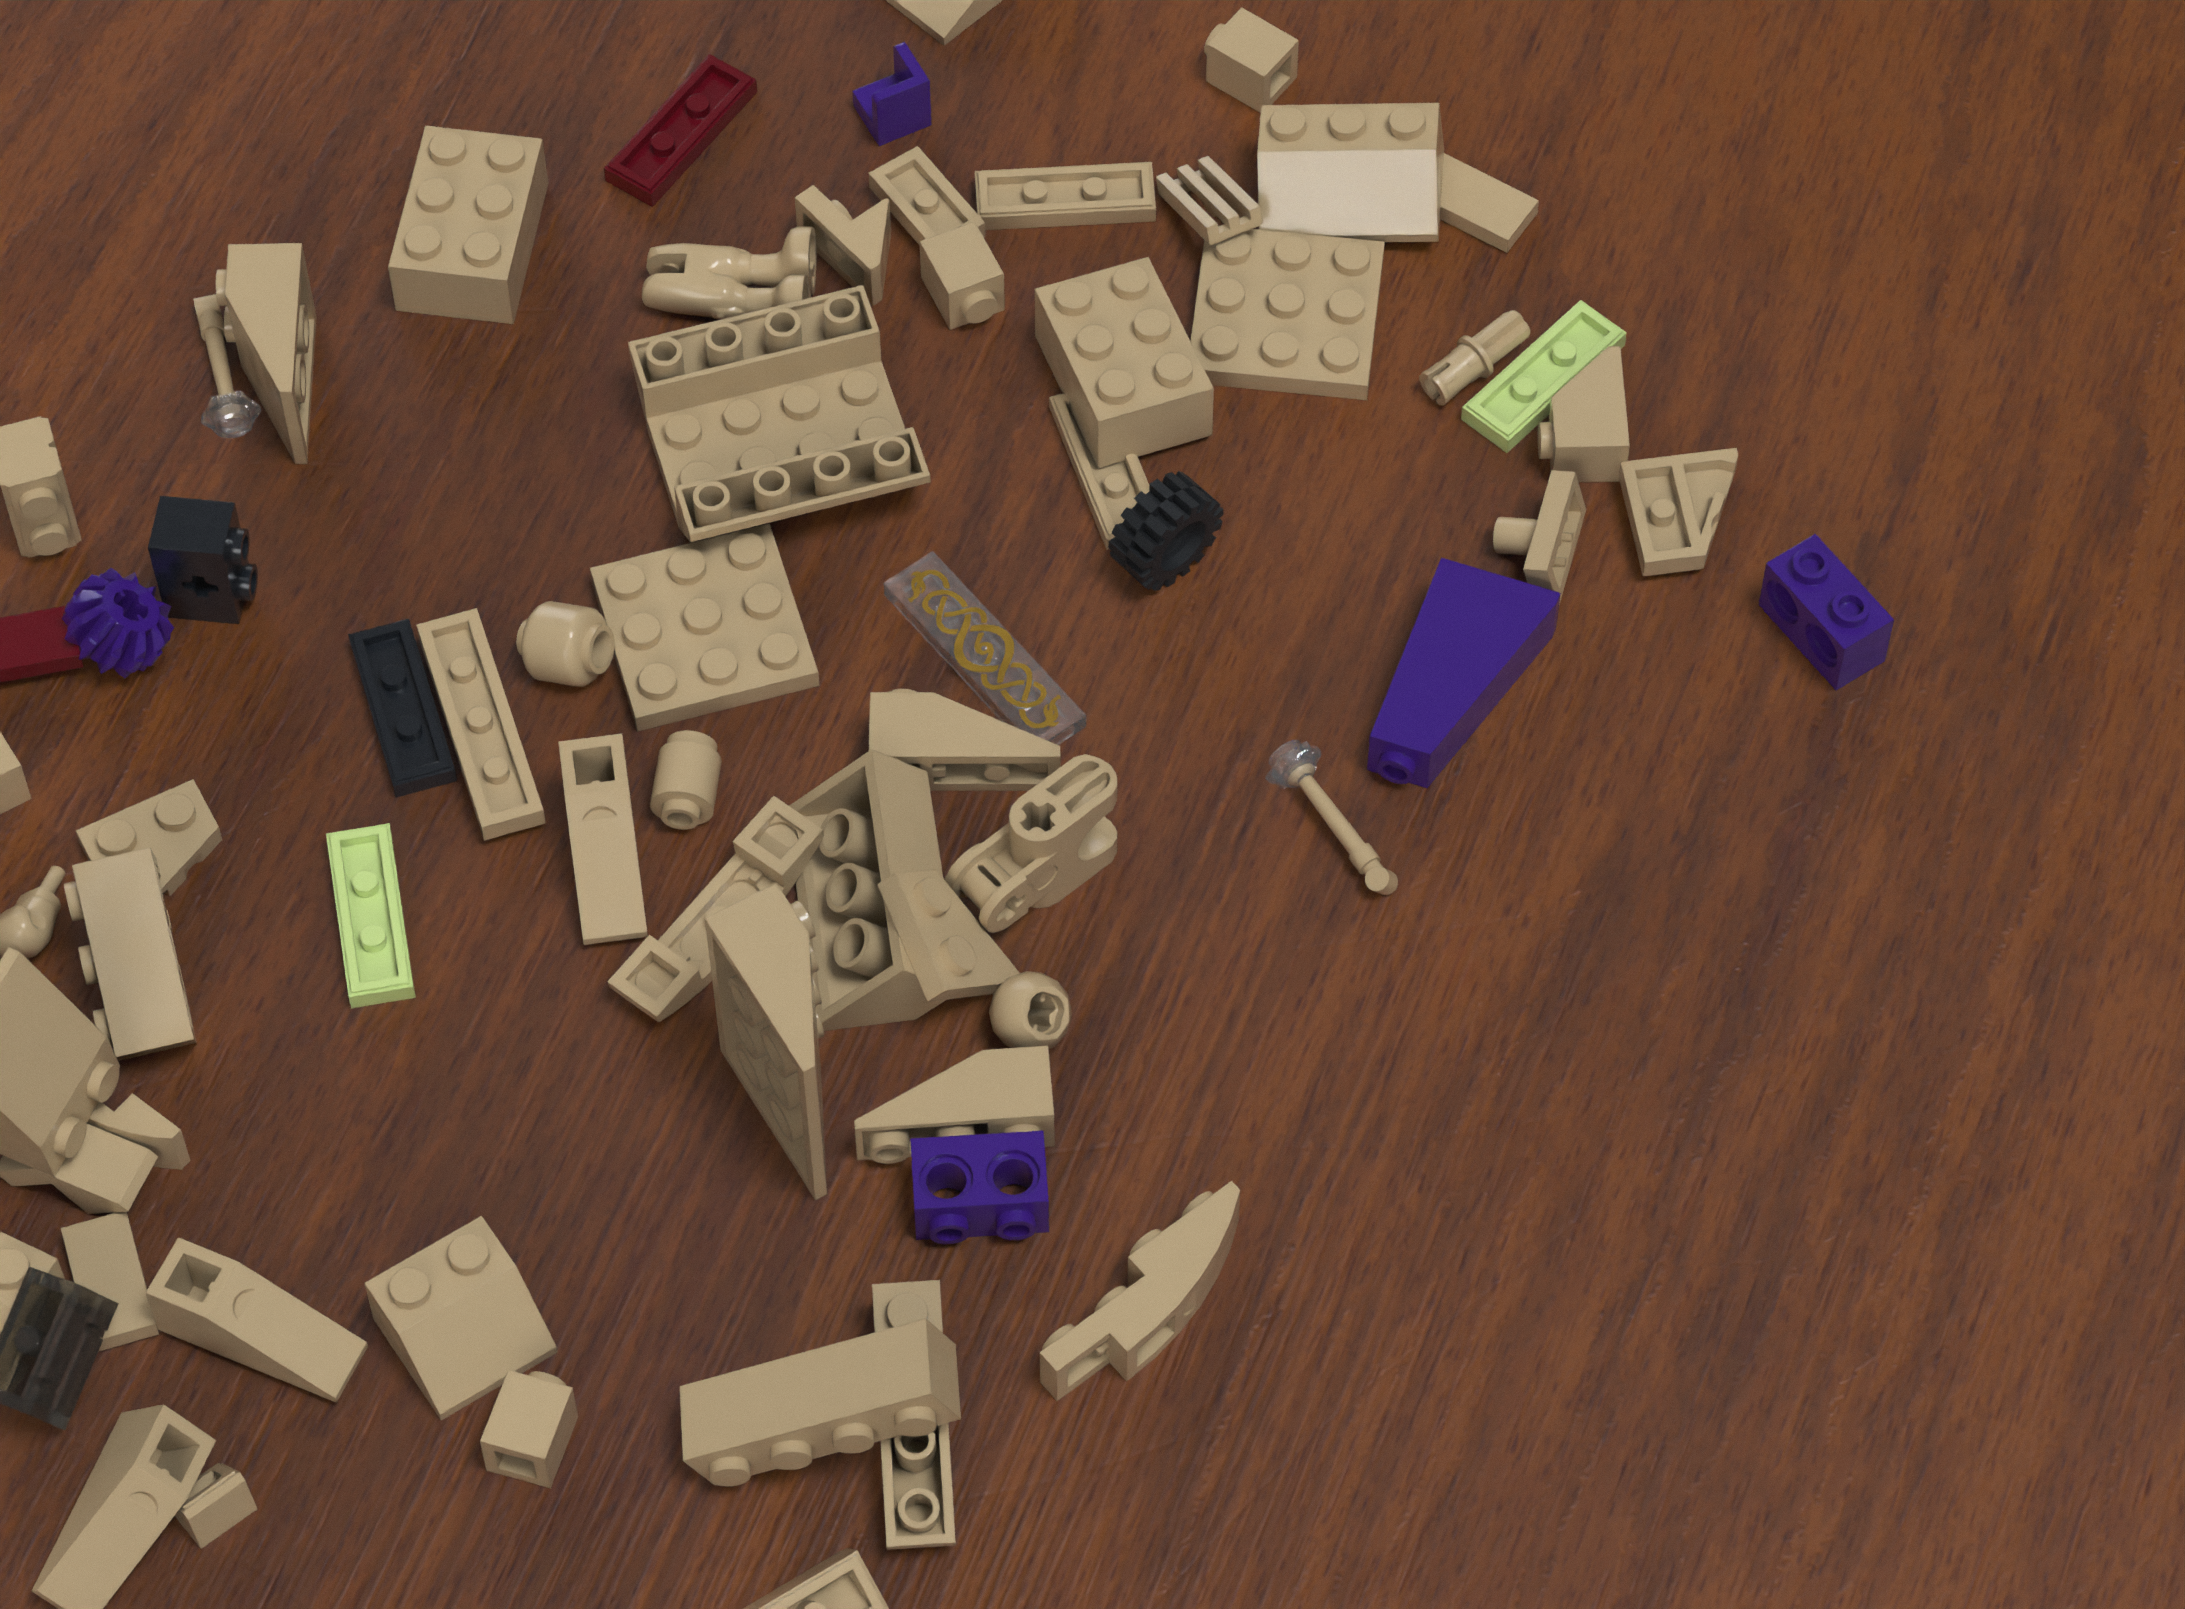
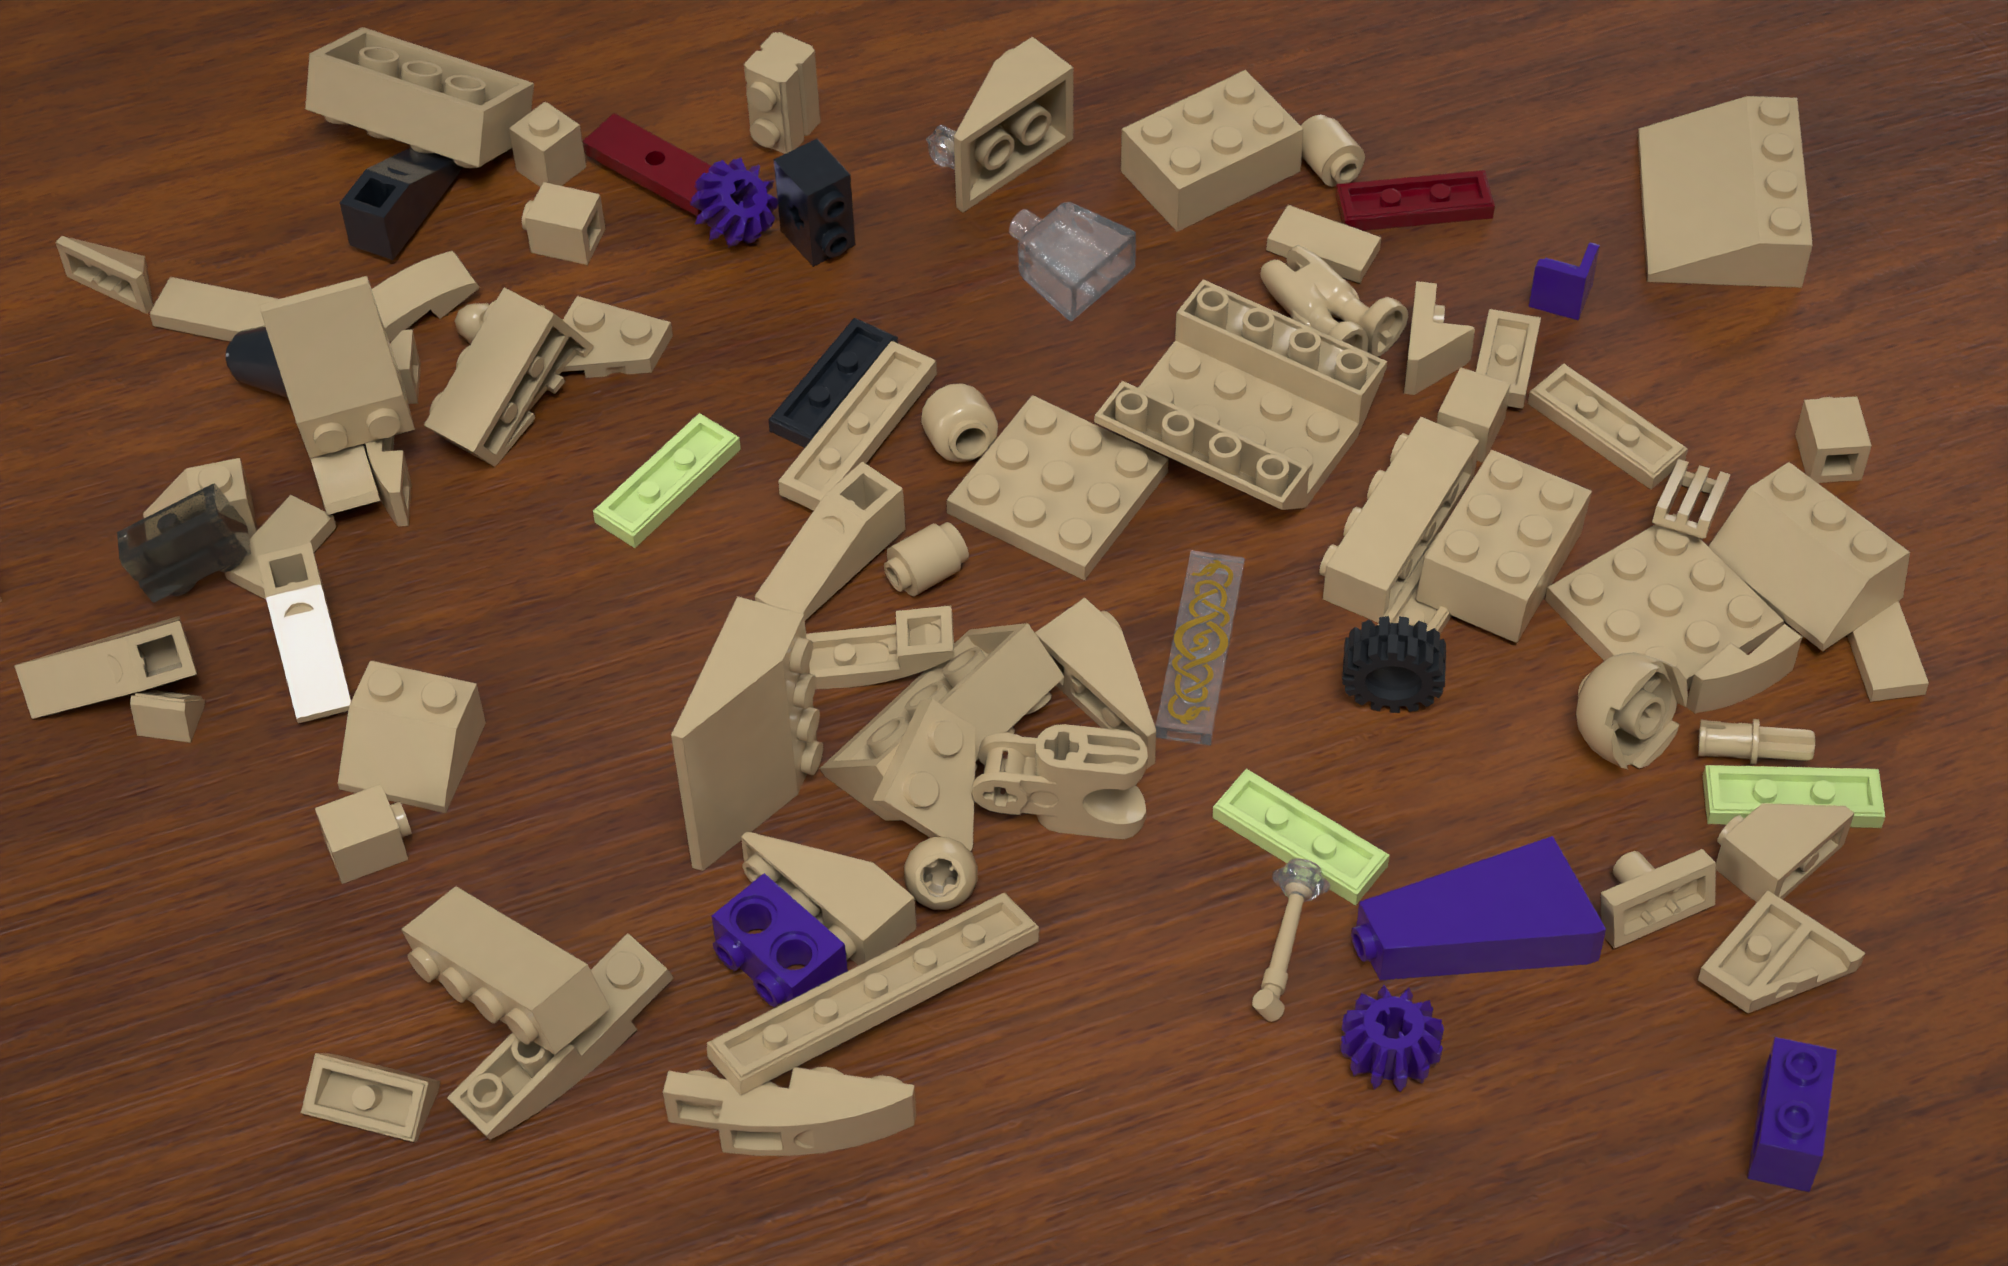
camera: 50 degrees right, 5 degrees down
(465, 419) = (1072, 255): none -> clear torso
(569, 140) = (1331, 150): none -> tan brick
(676, 218) = (1339, 245): none -> tan tile
(1014, 412) = (1399, 518): none -> tan brick
(1102, 1150) = (871, 993): none -> tan tile
(1240, 732) = (1299, 832): none -> yellowish green tile
(1364, 410) = (1630, 707): none -> tan cylinder
(1405, 308) = (1738, 676): none -> tan slope
(1501, 818) = (1391, 1038): none -> dark purple gear

